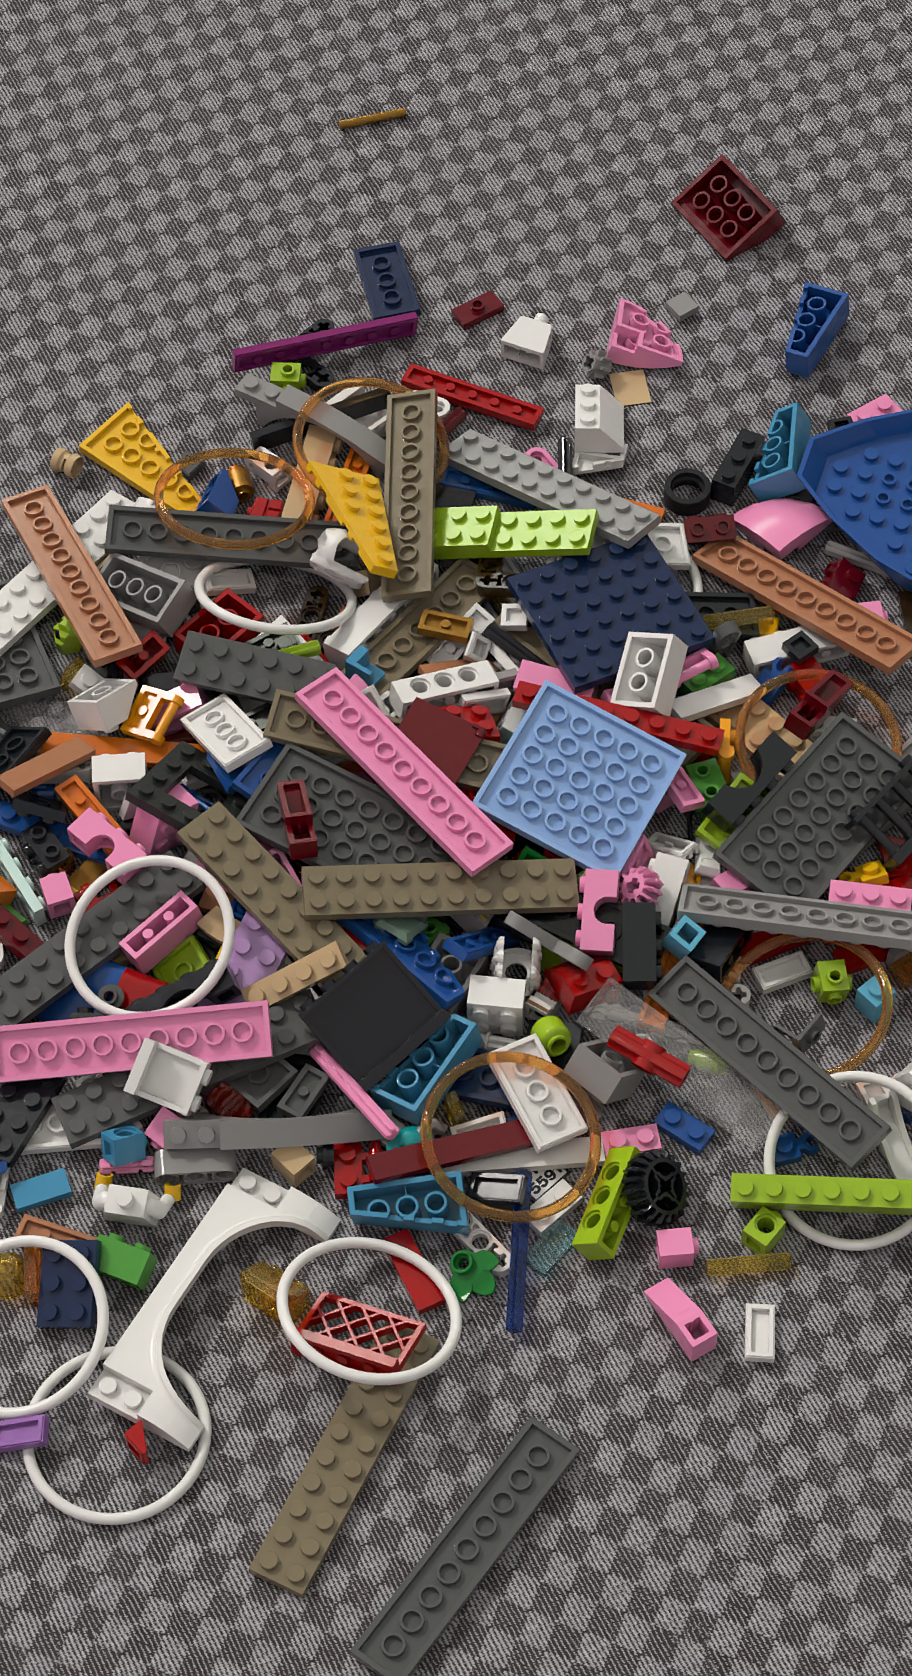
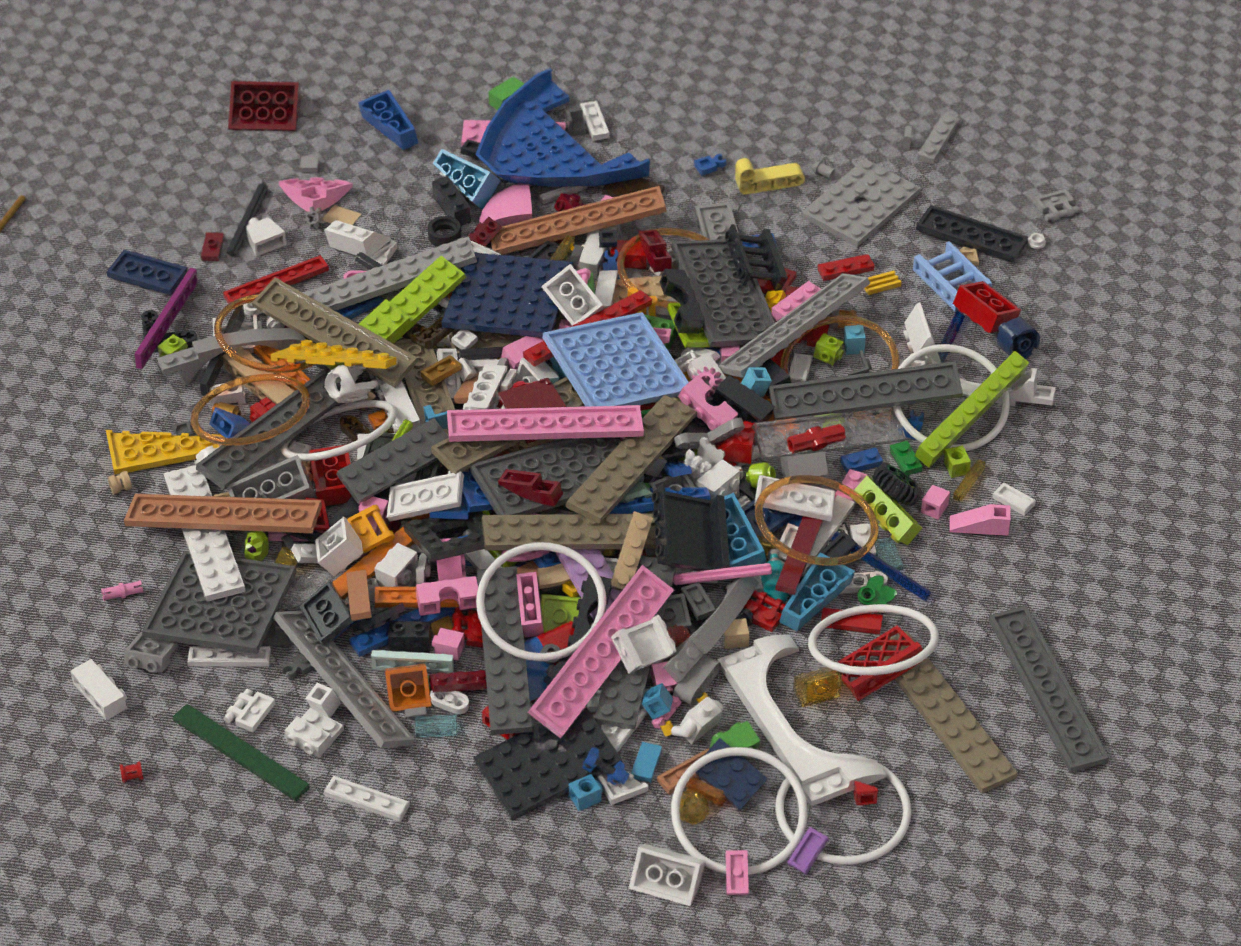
camera: 55 degrees left, 10 degrees down
(549, 309) = (249, 214): none -> black axle
(719, 1180) = (906, 458): none -> green plate

